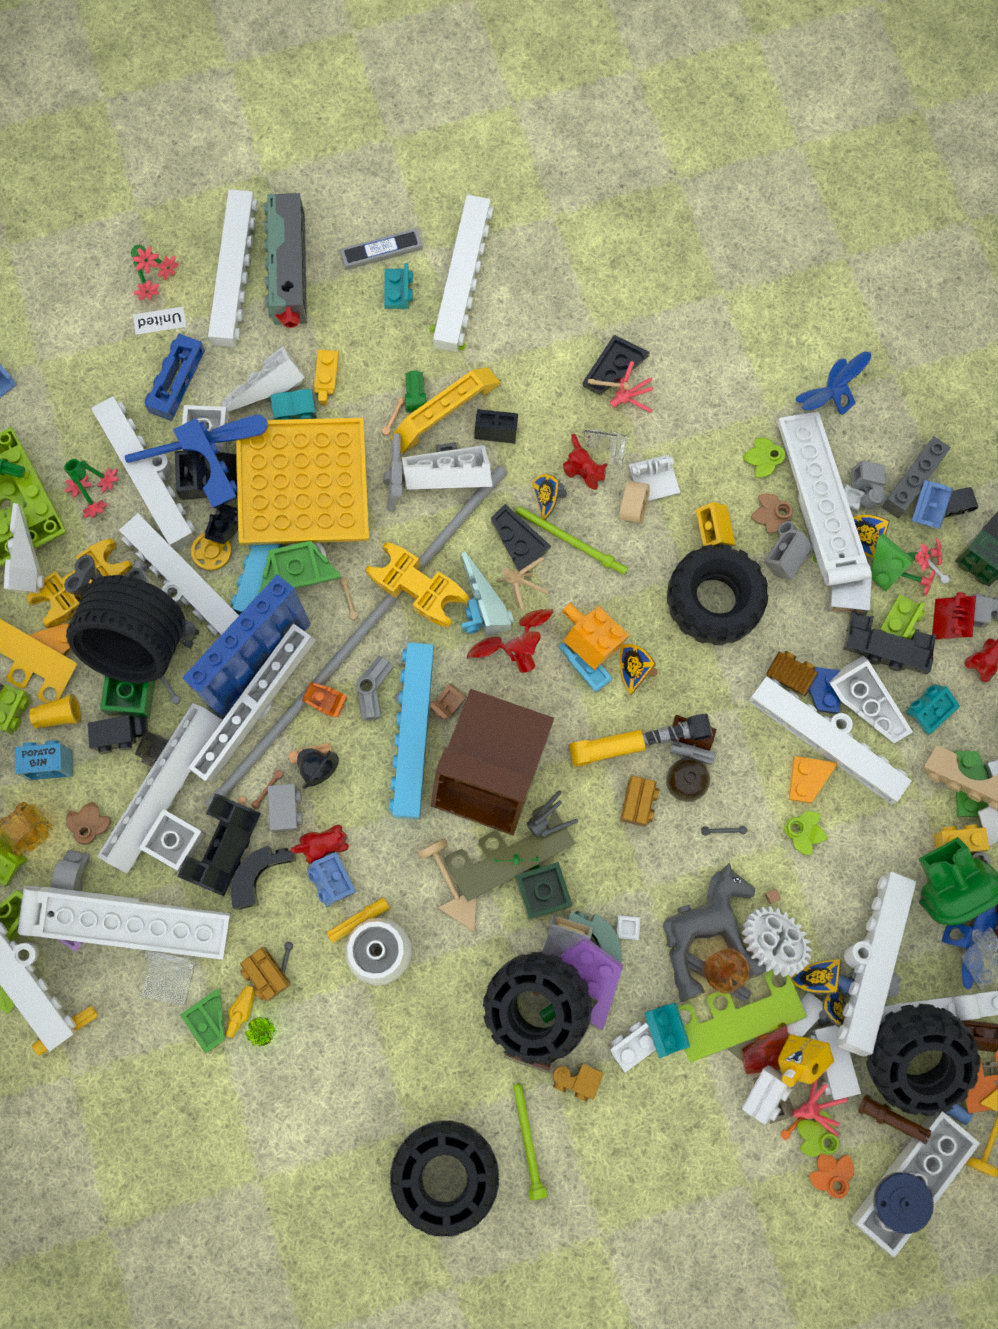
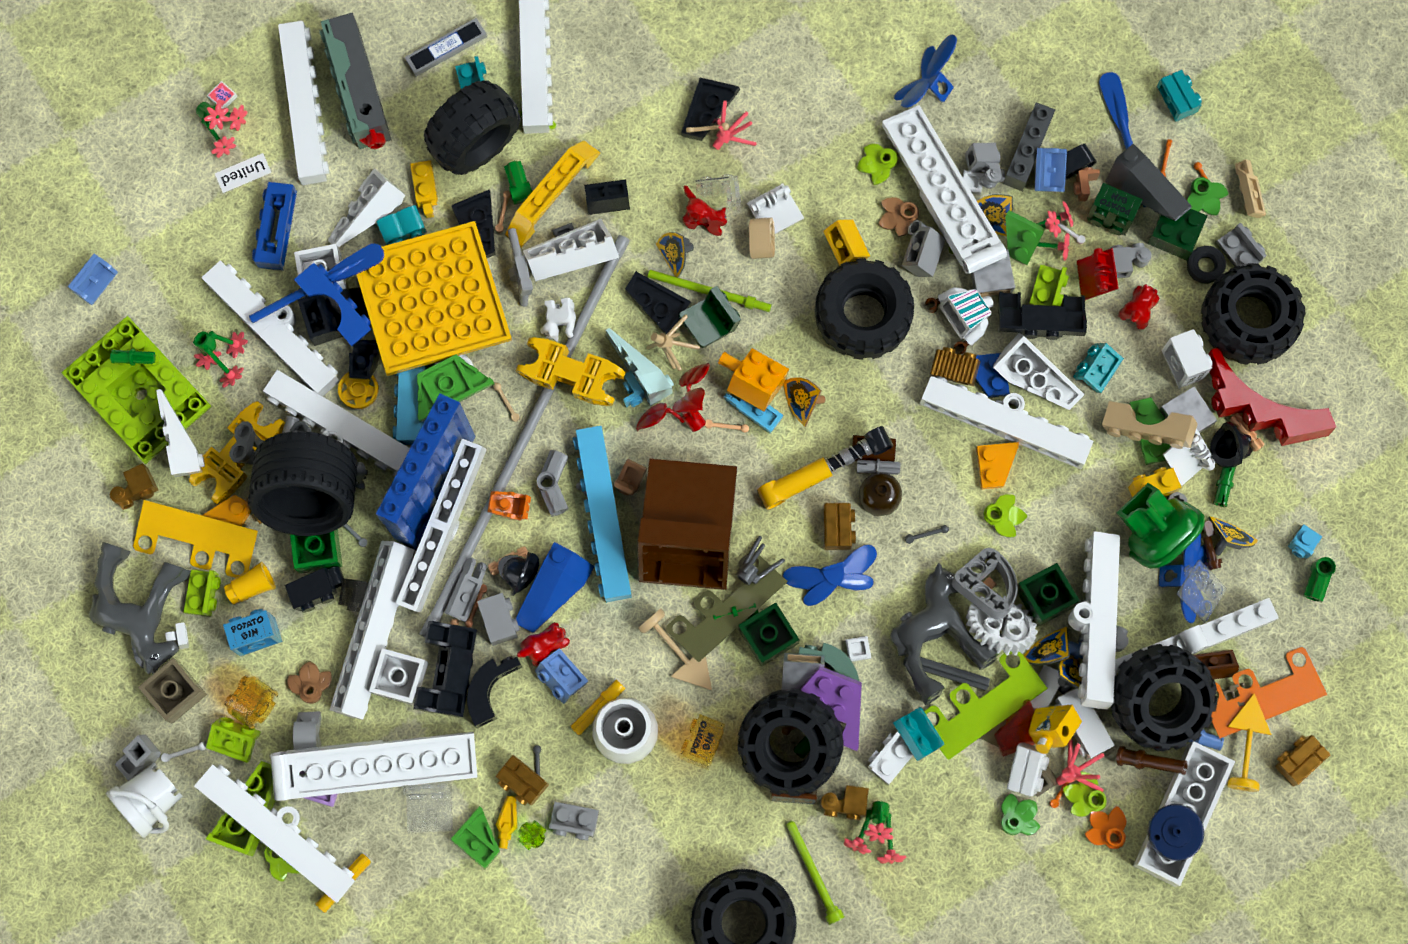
camera: 10 degrees left, 0 degrees up
(160, 243) = (223, 95): none -> tile
(261, 771) = (466, 590): none -> light grey hinge
(305, 1027) = (573, 820): none -> light grey bracket
(350, 786) = (556, 582): none -> blue wedge
(371, 409) = (478, 209): none -> black wing
(383, 327) = (471, 127): none -> black tyre
(420, 528) = (559, 316): none -> white animal
(451, 983) = (703, 741): none -> clear yellow brick
(538, 668) = (709, 424): none -> light nougat hinge
(566, 567) = (711, 318): none -> bracket
(609, 1103) = (880, 815): none -> plant
(611, 852) = (843, 574): none -> blue piece
(726, 971) = (961, 663): clear orange wheel -> none
(750, 1136) = (1021, 813): none -> bright green plate
(760, 889) = (974, 579): none -> light grey beam
(815, 623) = (965, 312): none -> white torso
(829, 922) = (1047, 594): none -> dark green brick
(959, 525) = (1081, 186): none -> nougat bracket

